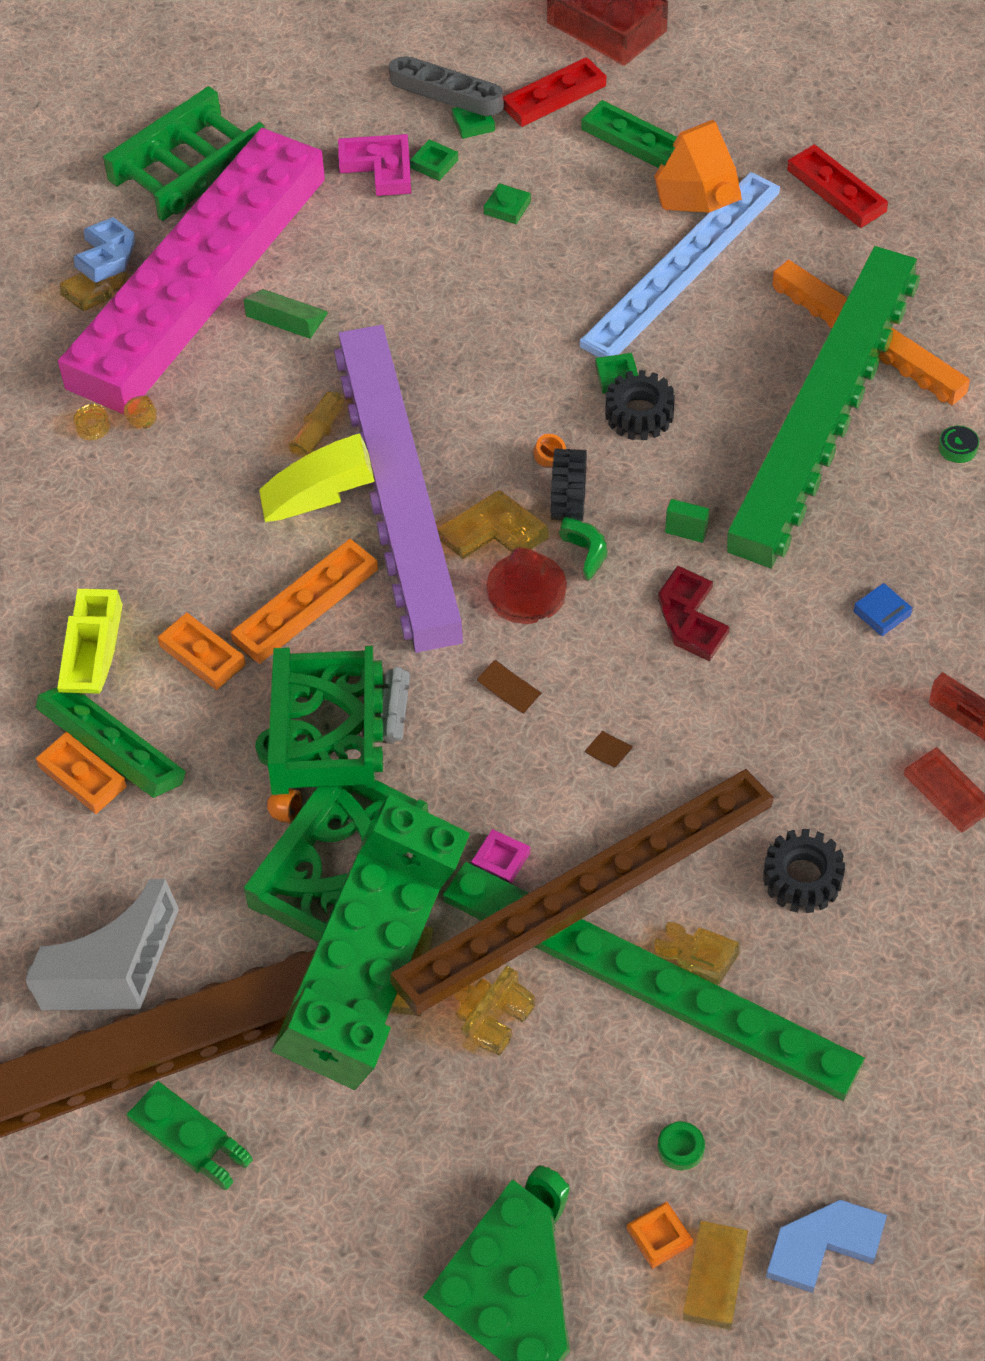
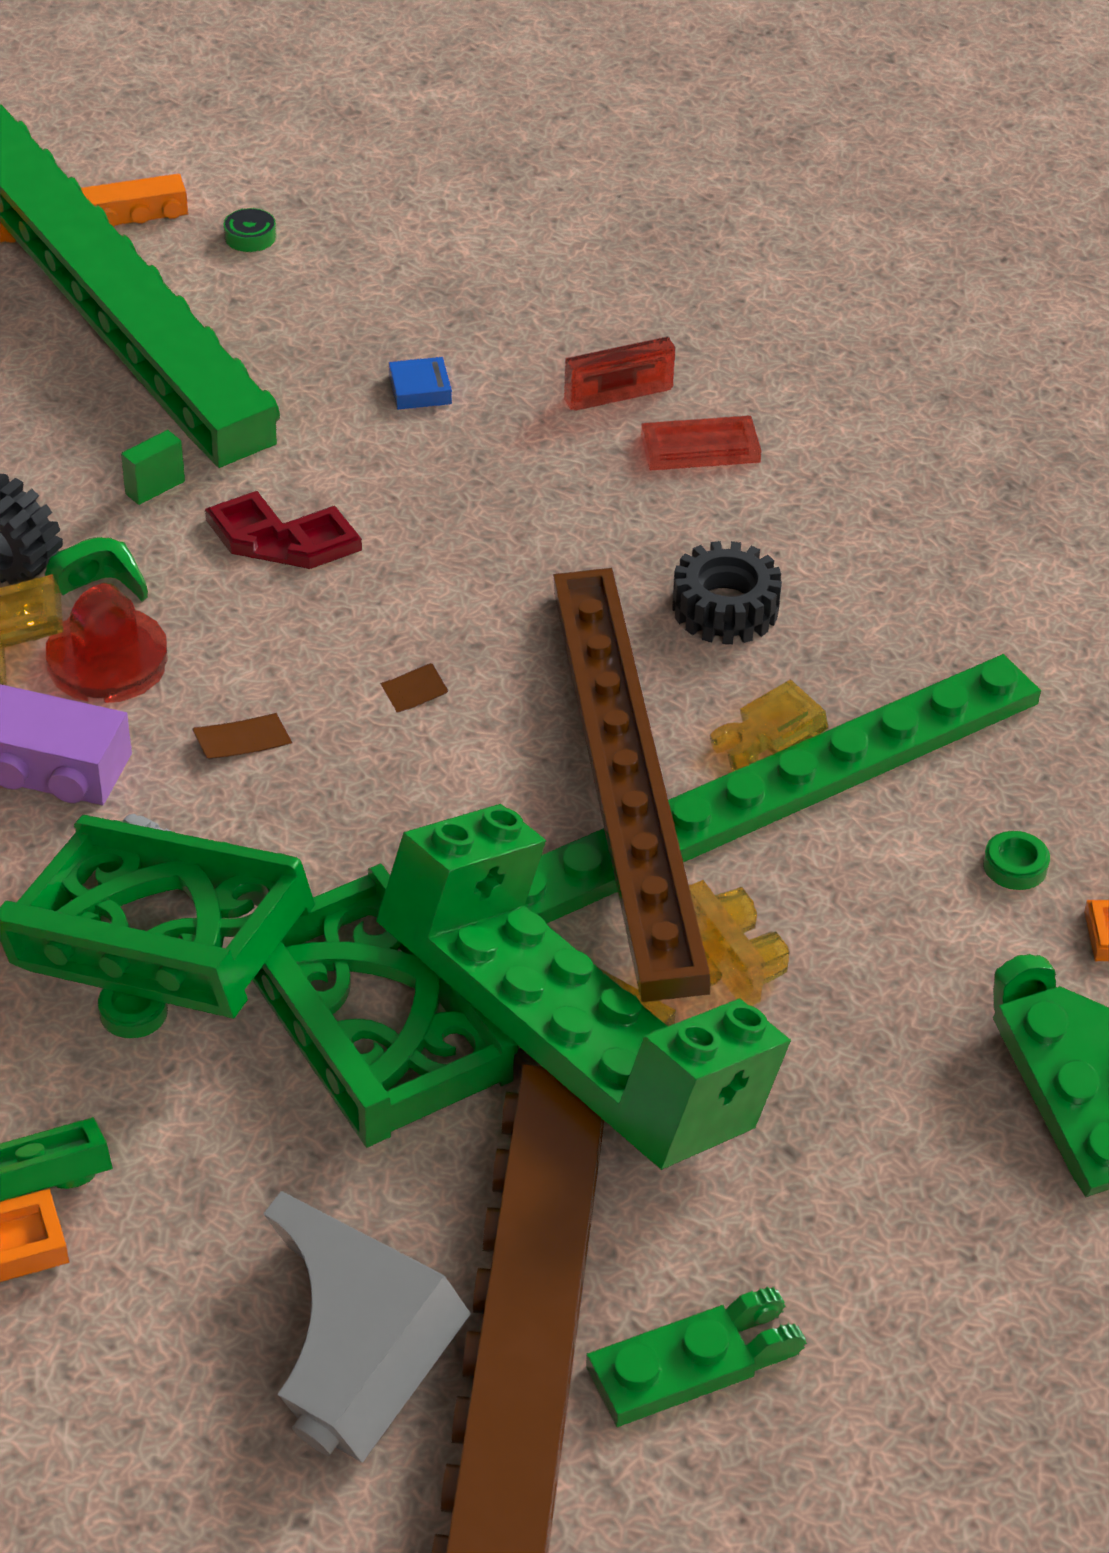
camera: 65 degrees left, 10 degrees down
(279, 805) = (243, 1035): orange hinge -> none

